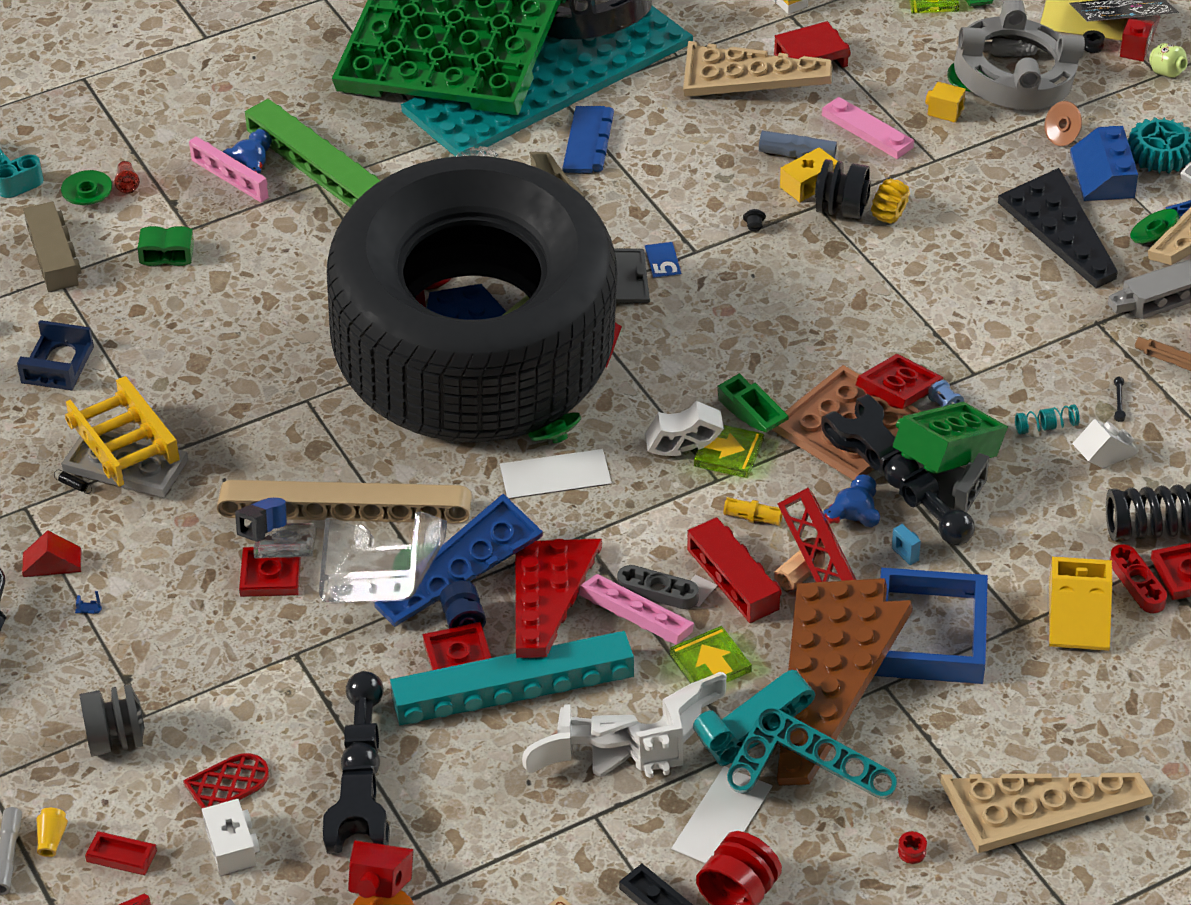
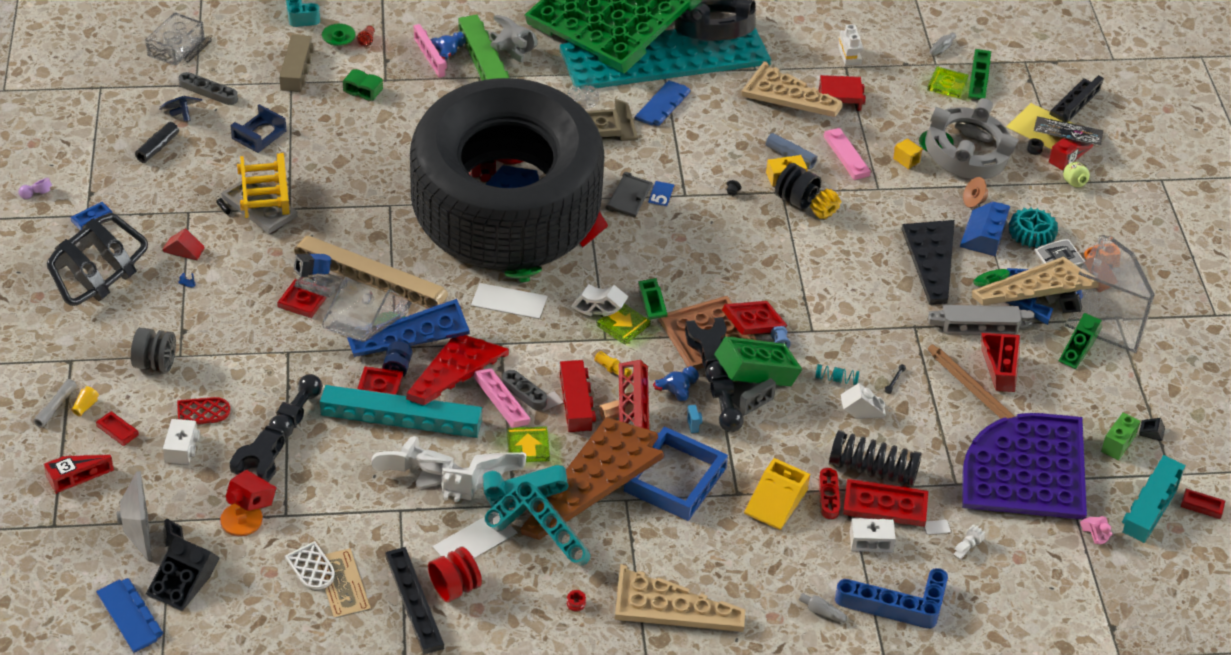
camera: 20 degrees right, 0 degrees up
(338, 115) = (513, 38): none -> light grey piece

